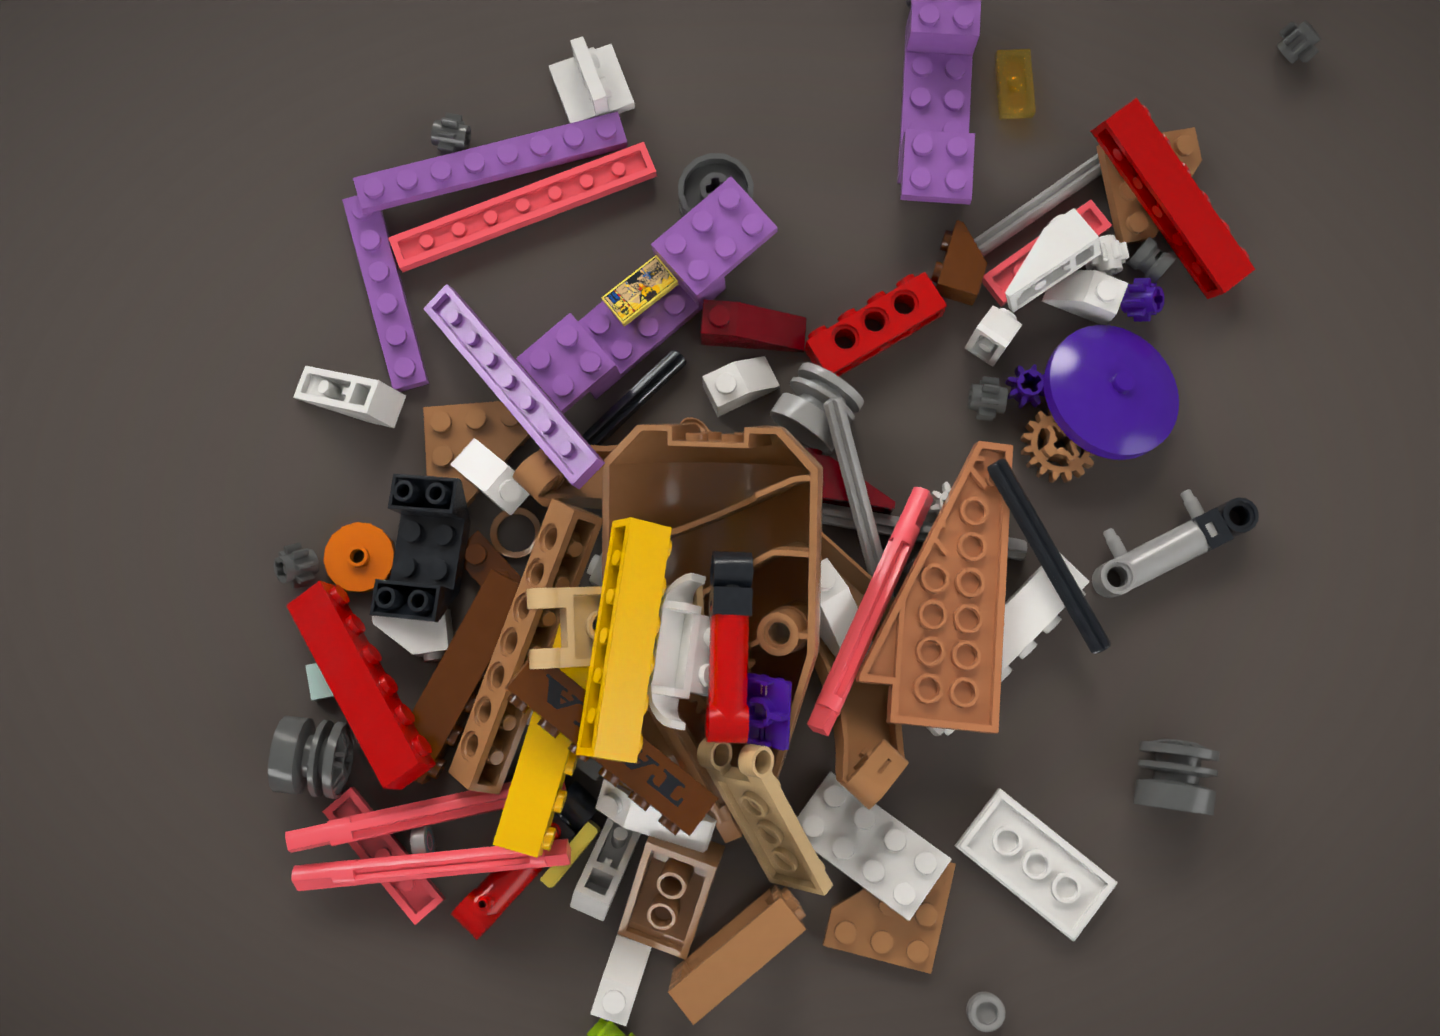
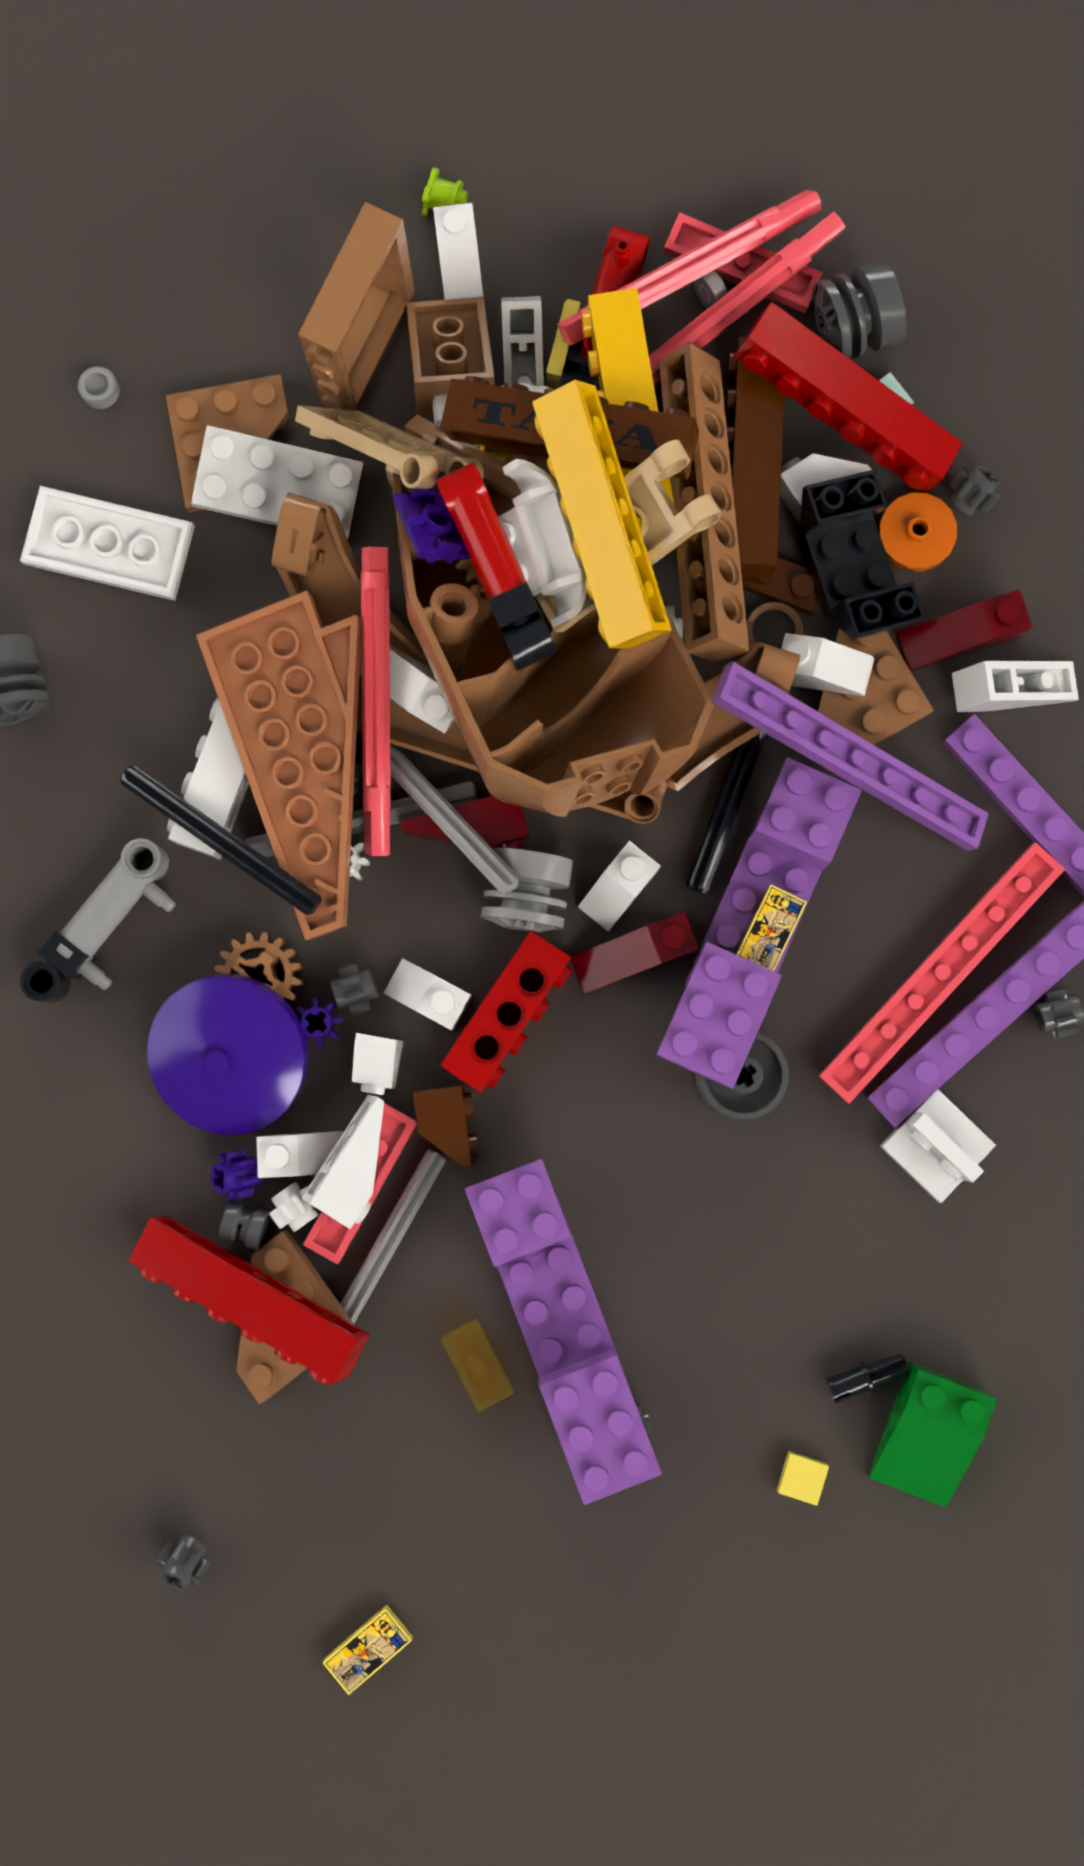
camera: 155 degrees right, 5 degrees up
(362, 455) = (965, 631): none -> dark red slope
(930, 368) = (428, 994): none -> white slope

